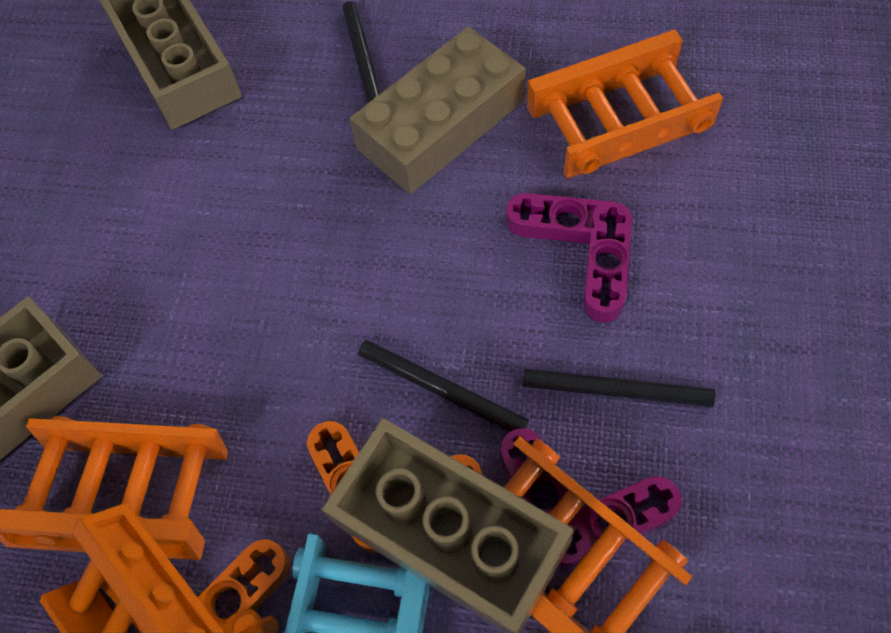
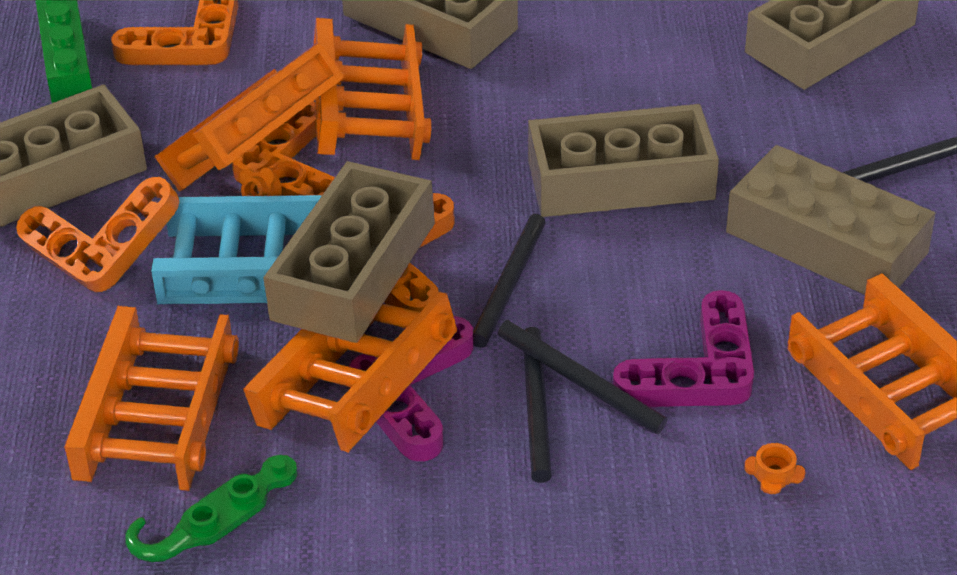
camera: 75 degrees right, 20 degrees down
(316, 254) = (622, 160): none -> dark tan brick
(596, 343) = (582, 377): none -> black bar
(724, 202) = (775, 467): none -> orange plate

